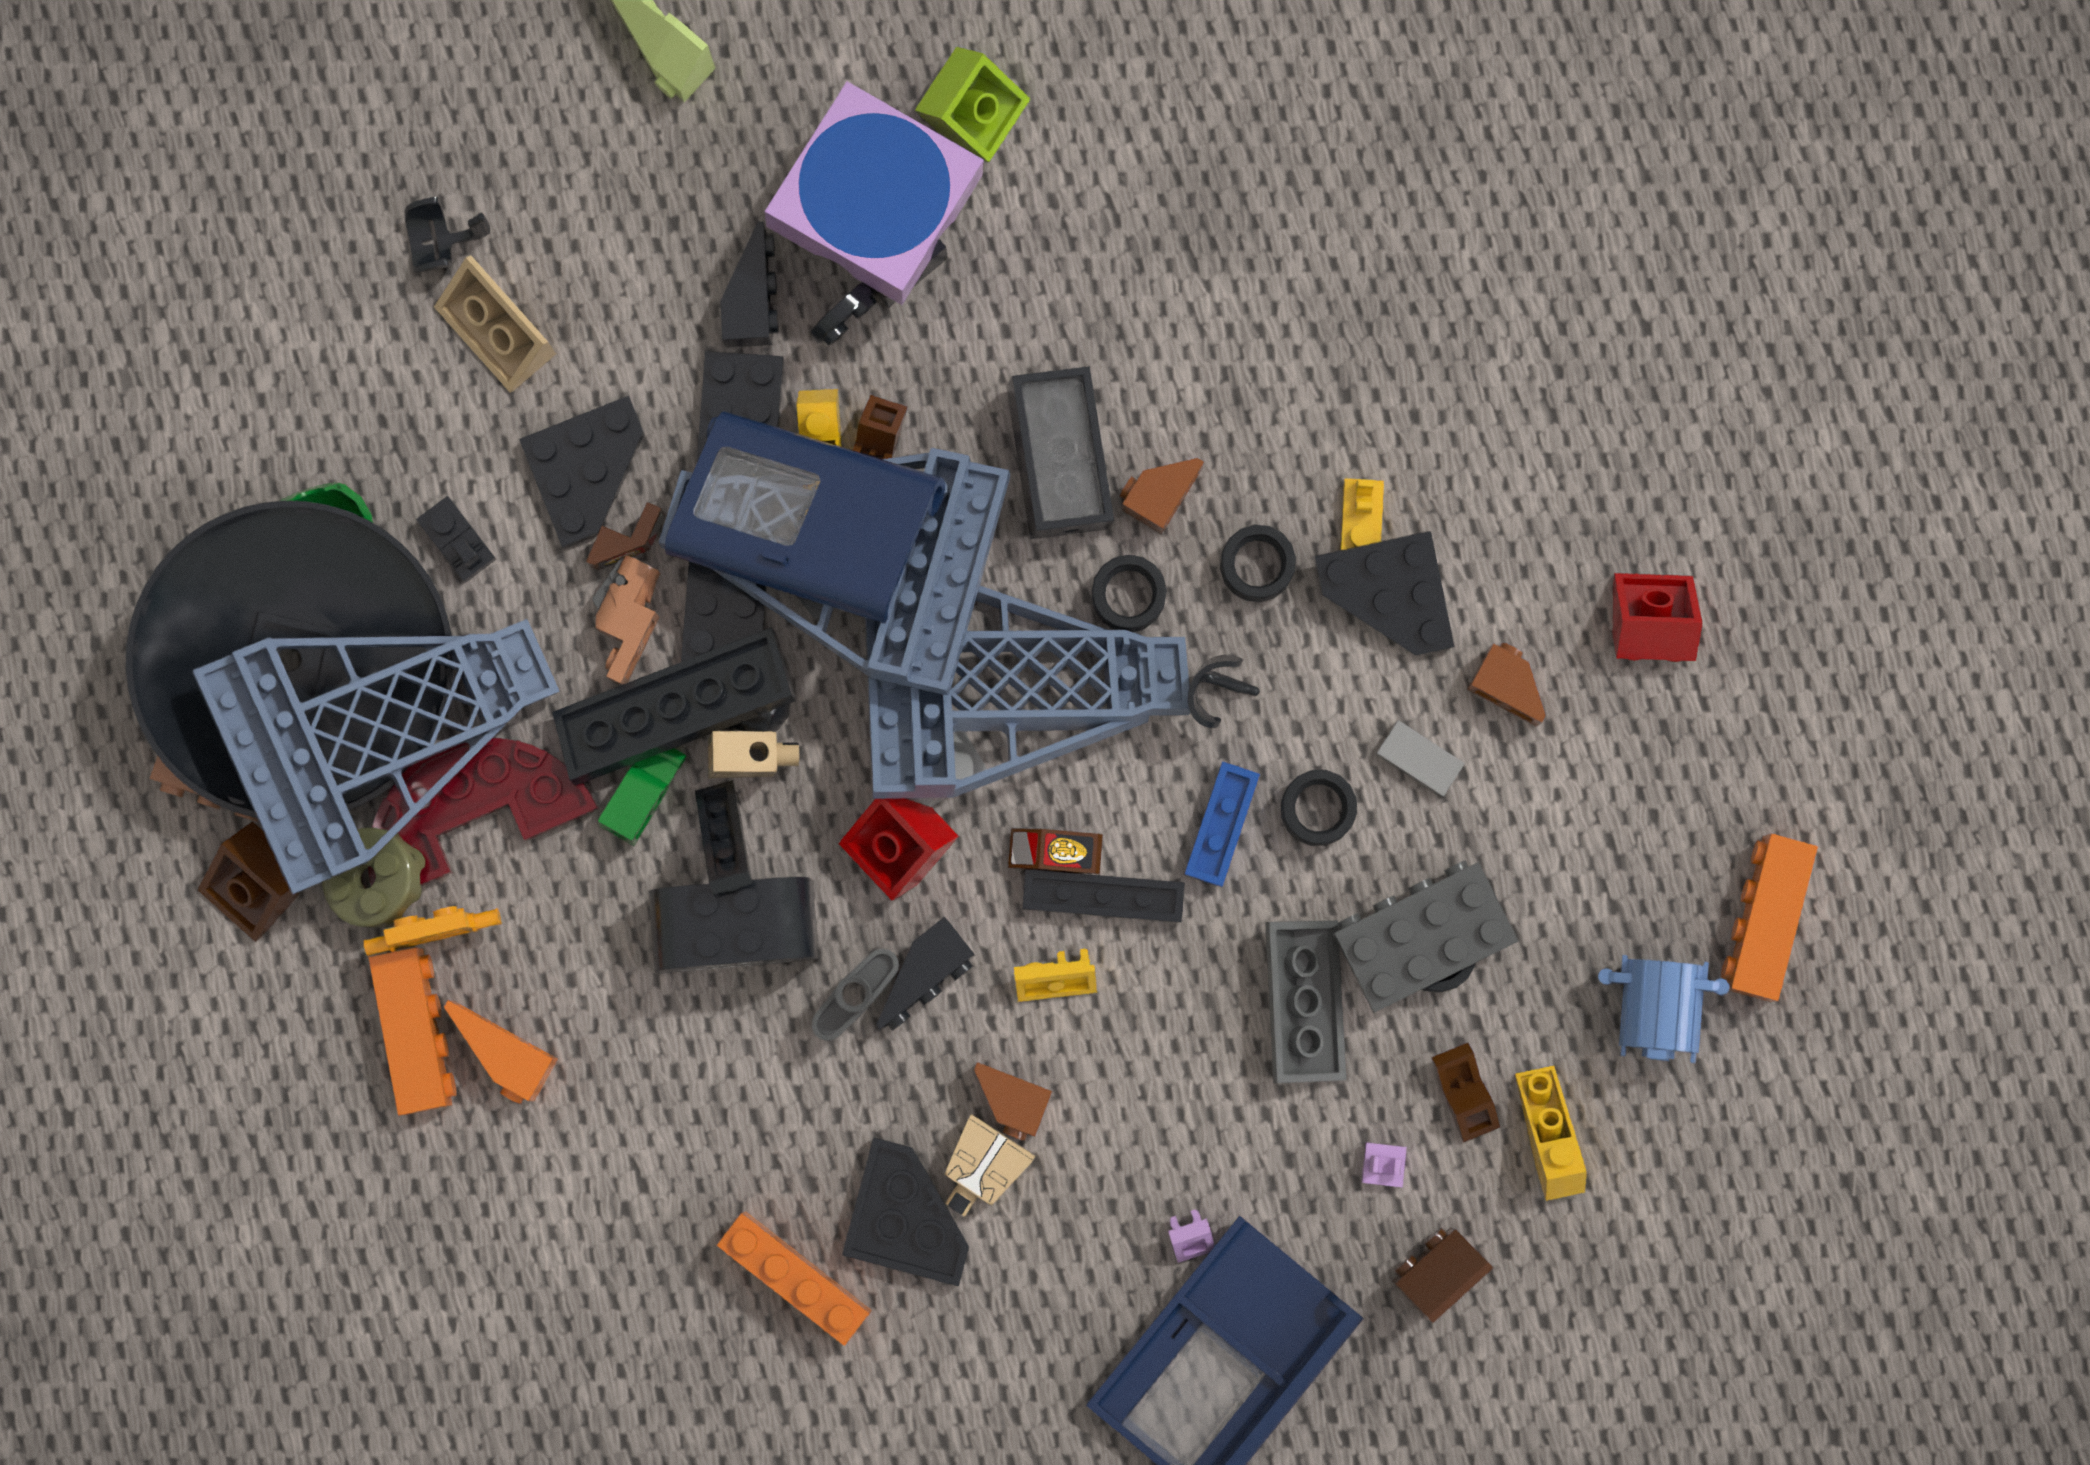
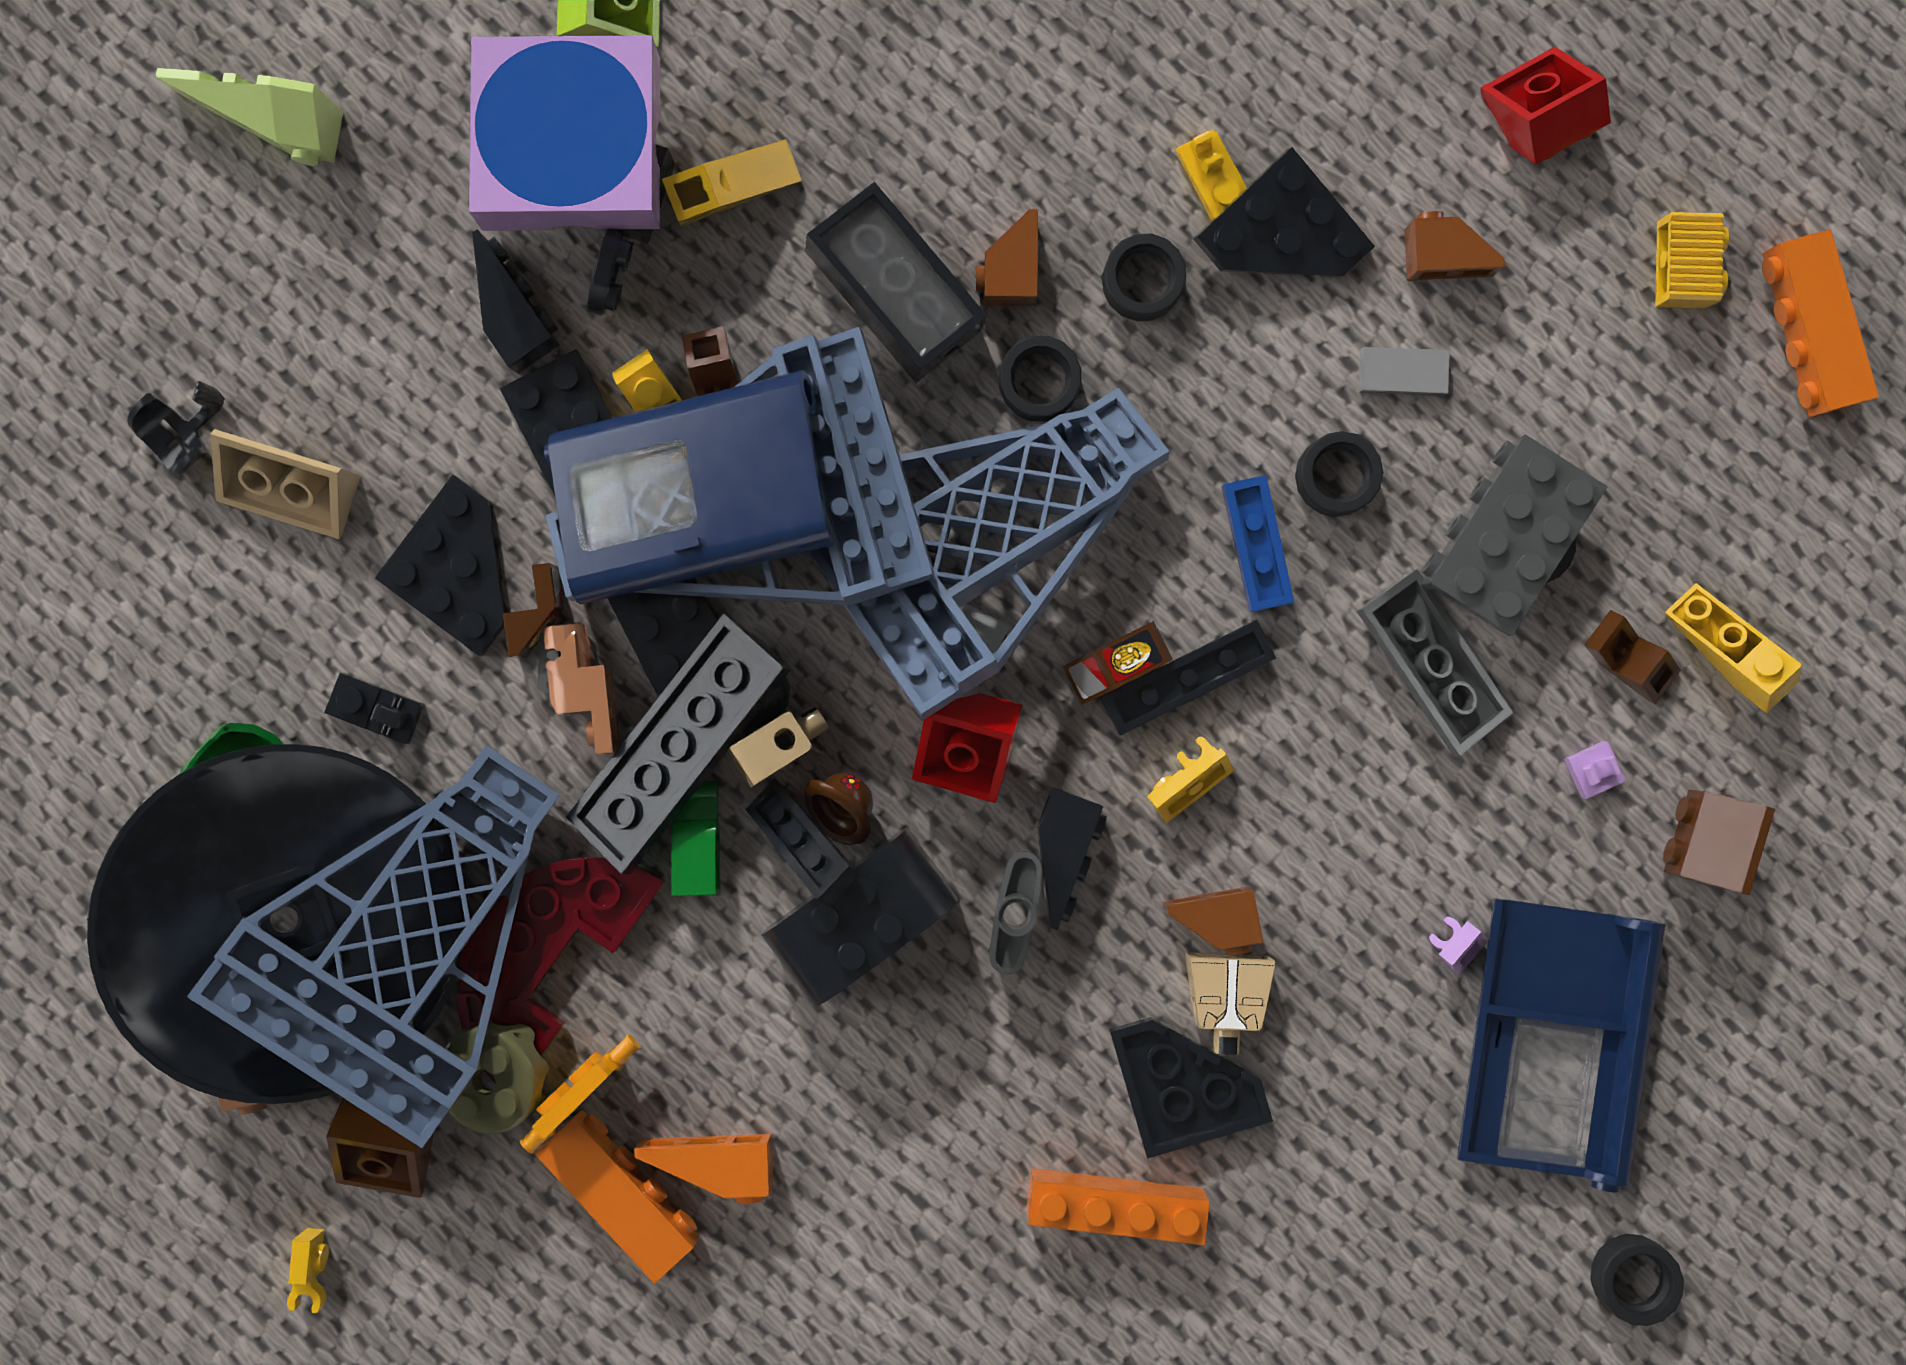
camera: 35 degrees left, 5 degrees up
(140, 936) = (307, 1260): none -> yellow plate
(770, 832) = (841, 807): none -> reddish brown hat
(981, 299) = (731, 181): none -> yellow slope
(1205, 675) = (1164, 409): black helmet -> none
(1662, 1005) = (1774, 466): medium blue container -> none
(1697, 806) = (1690, 260): none -> yellow brick

